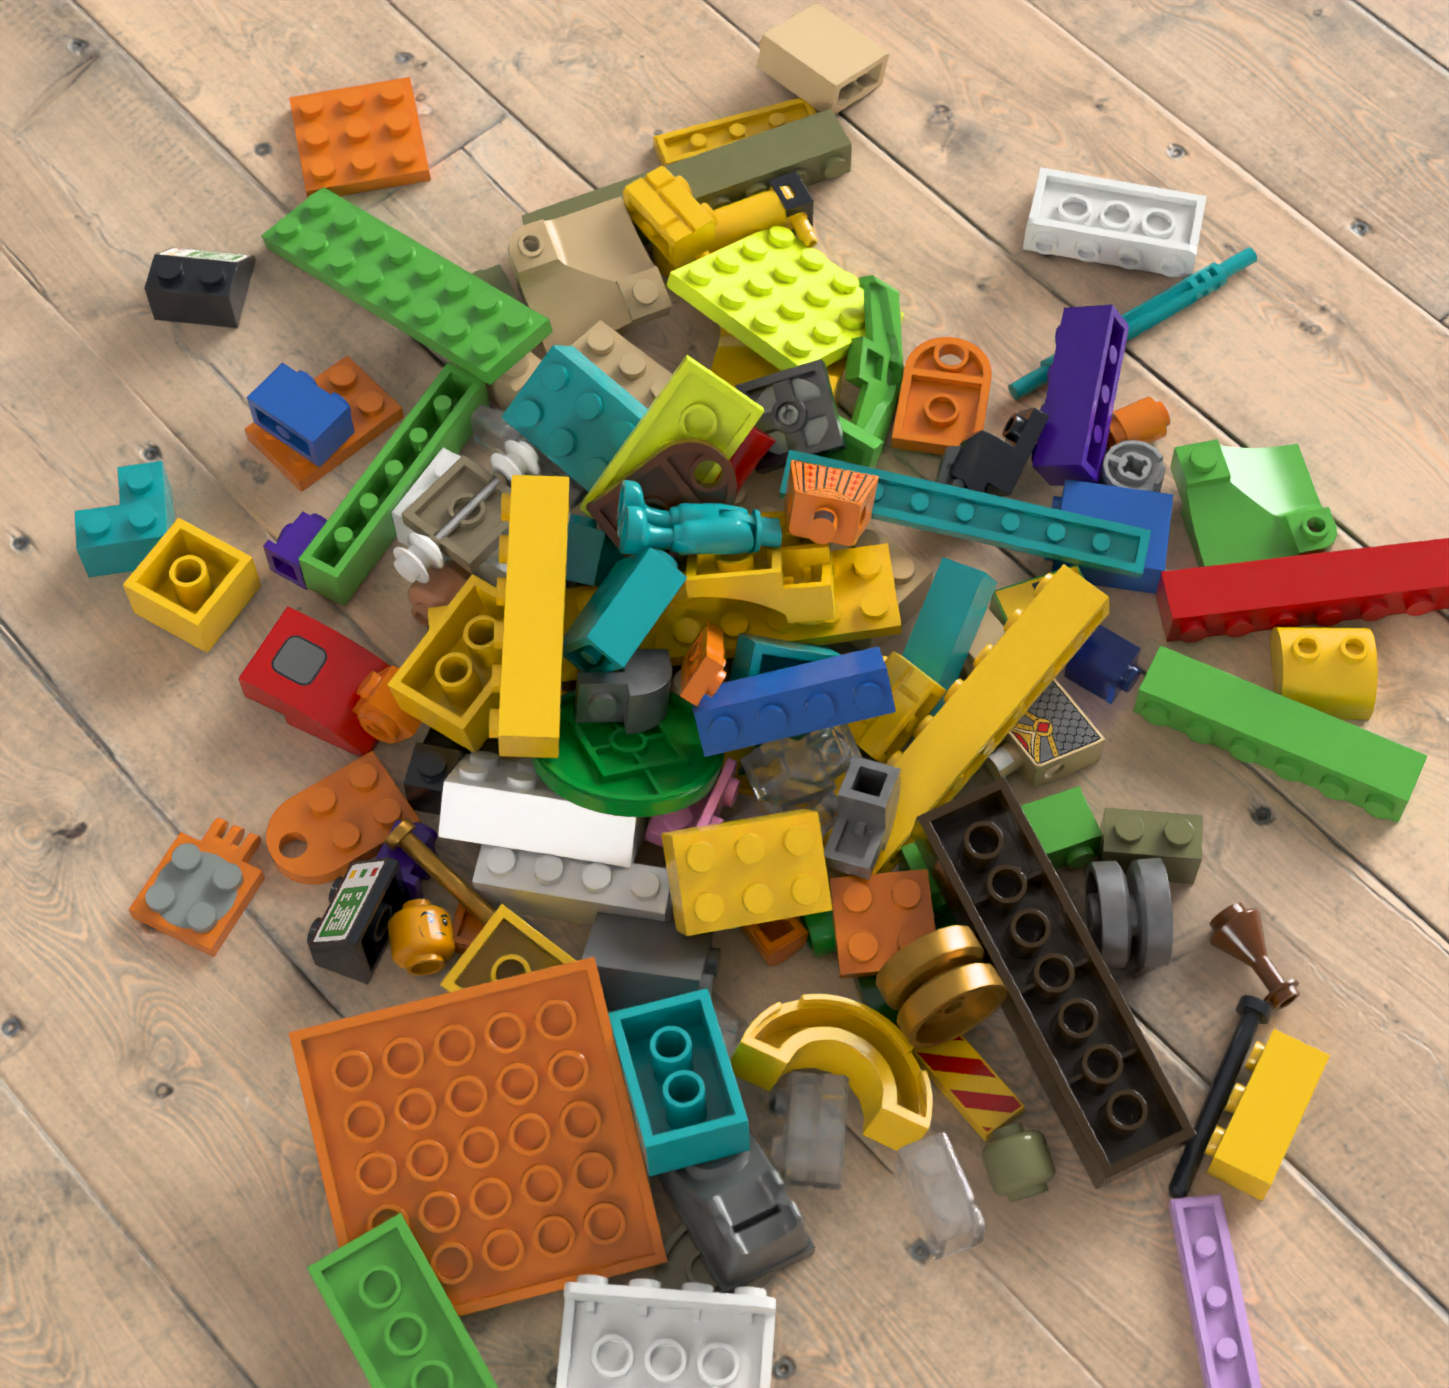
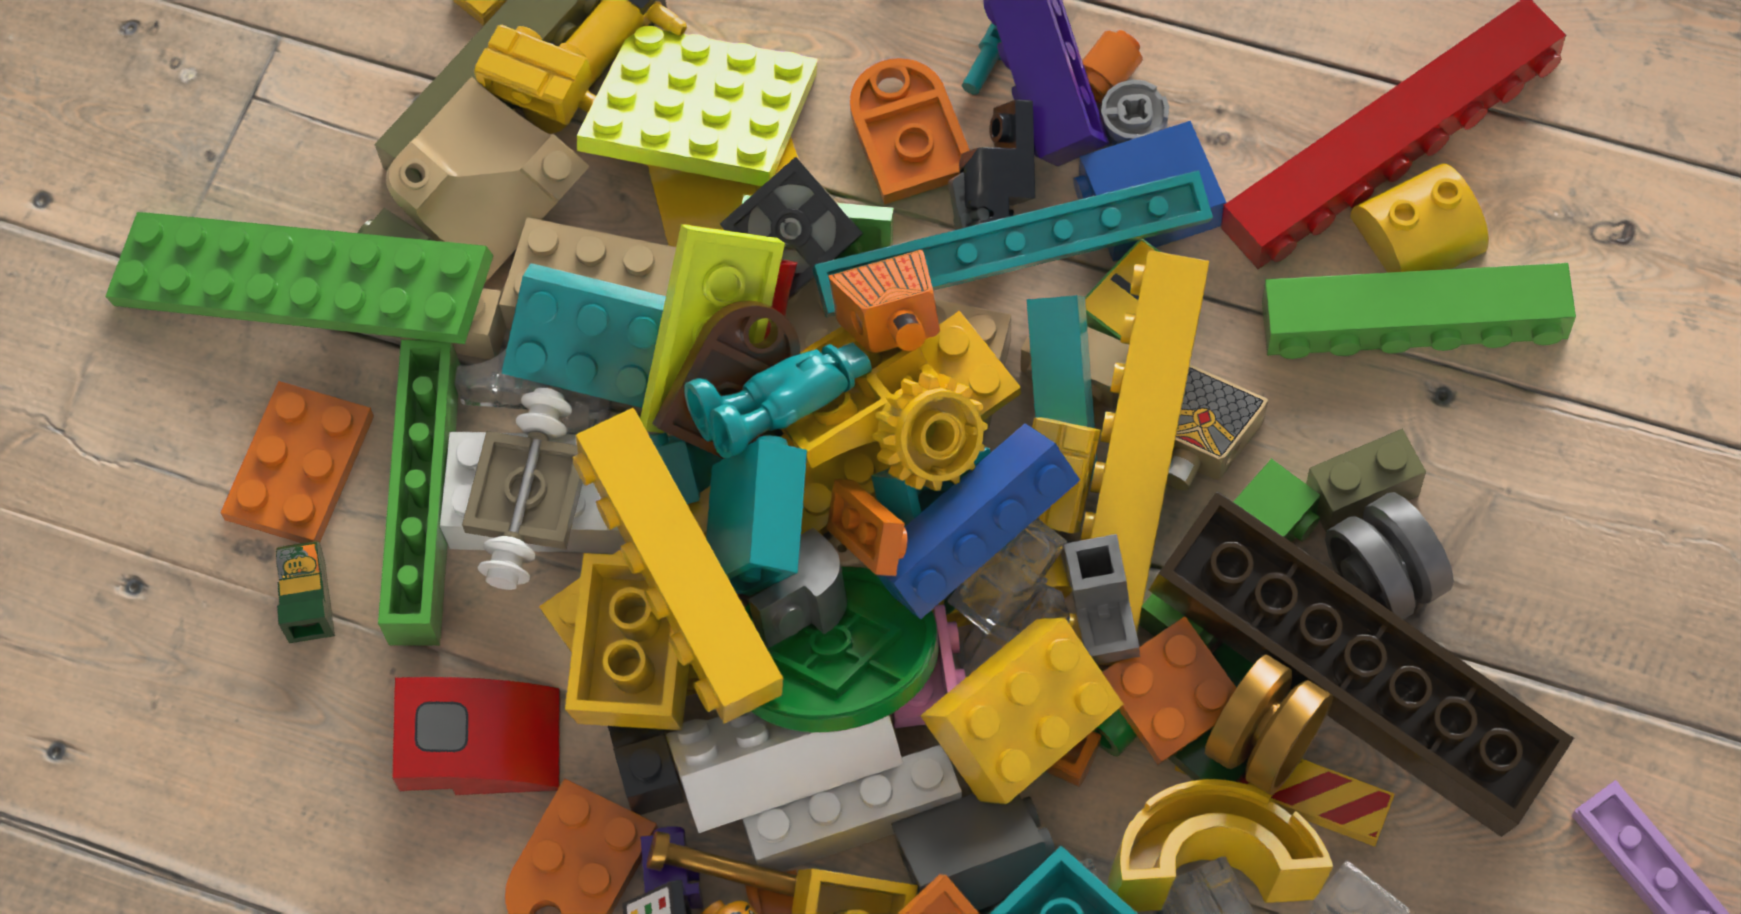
camera: 25 degrees left, 5 degrees up
(122, 535) = (178, 681): teal brick -> none
(192, 585) = (277, 705): yellow brick -> none
(199, 286) = (74, 382): black slope -> none
(266, 513) = (303, 592): none -> dark green leg
(291, 543) = (358, 609): dark purple brick -> none
(301, 414) = (279, 469): blue brick -> none
(360, 138) = (141, 139): orange plate -> none
(379, 710) = (550, 728): orange brick -> none
(438, 591) = (548, 576): nougat head -> none
(809, 633) = (904, 428): none -> yellow gear
(877, 360) = (822, 124): bright green plate -> none
(1018, 1162) = (1422, 851): olive head -> none
(1105, 665) = (1225, 324): clear blue brick -> none
(1241, 935) = (1496, 525): reddish brown piece -> none
(1249, 503) = (1262, 95): bright green slope -> none
(1252, 1013) = (1546, 593): black bar -> none
(1265, 1113) = (1614, 683): yellow brick -> none

